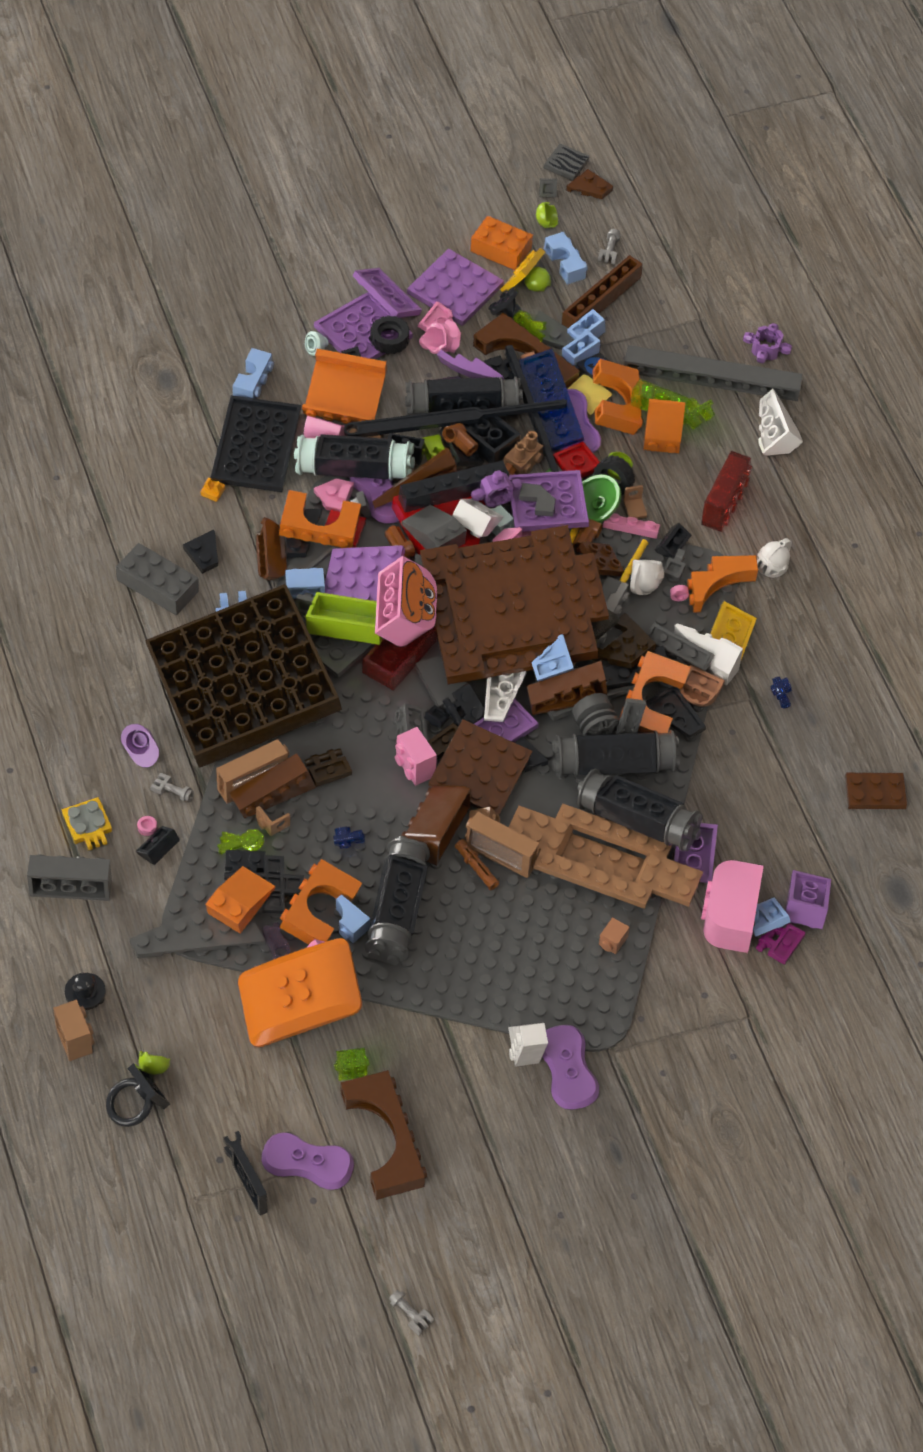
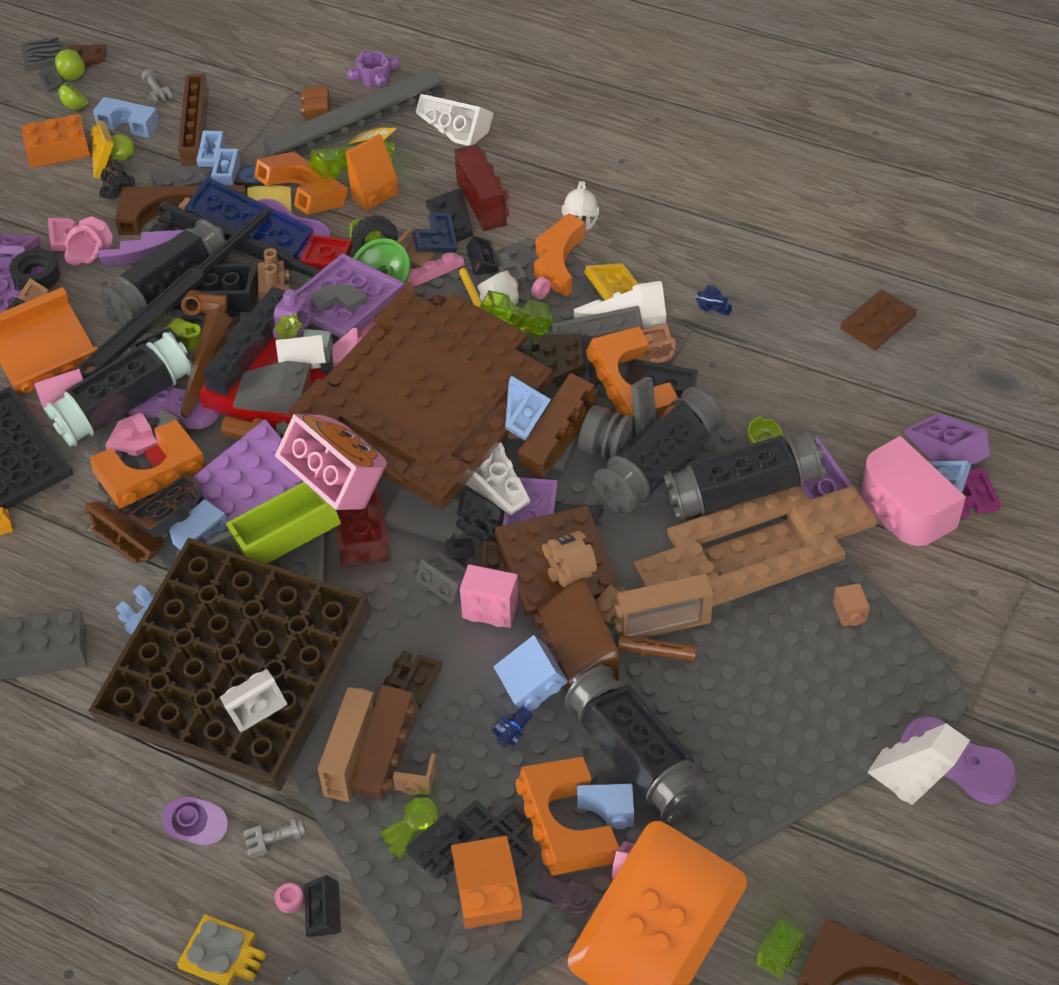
camera: 40 degrees left, 5 degrees down
(203, 551) = (50, 585): black wing -> none
(222, 704) = (253, 700): none -> white slope
(300, 556) = (167, 507): none -> black plate
(371, 350) = (32, 290): none -> medium nougat tile
(387, 816) = (530, 674): none -> light blue brick
(456, 285) = (45, 196): medium lavender plate -> none
(476, 770) = (569, 558): none -> medium nougat brick
(480, 496) = (287, 326): none -> clear neon green plant
(524, 319) = (161, 179): clear neon green piece -> none
(569, 187) = (69, 65): none -> lime hair
(624, 590) = (532, 319): none -> clear neon green arch
(662, 507) = (440, 237): none -> dark blue plate
(692, 496) = (453, 203): none -> black wing
(698, 798) = (762, 429): none -> lime hair
(699, 340) = (315, 101): none -> dark orange brick
(704, 396) = (366, 135): none -> yellow sticker

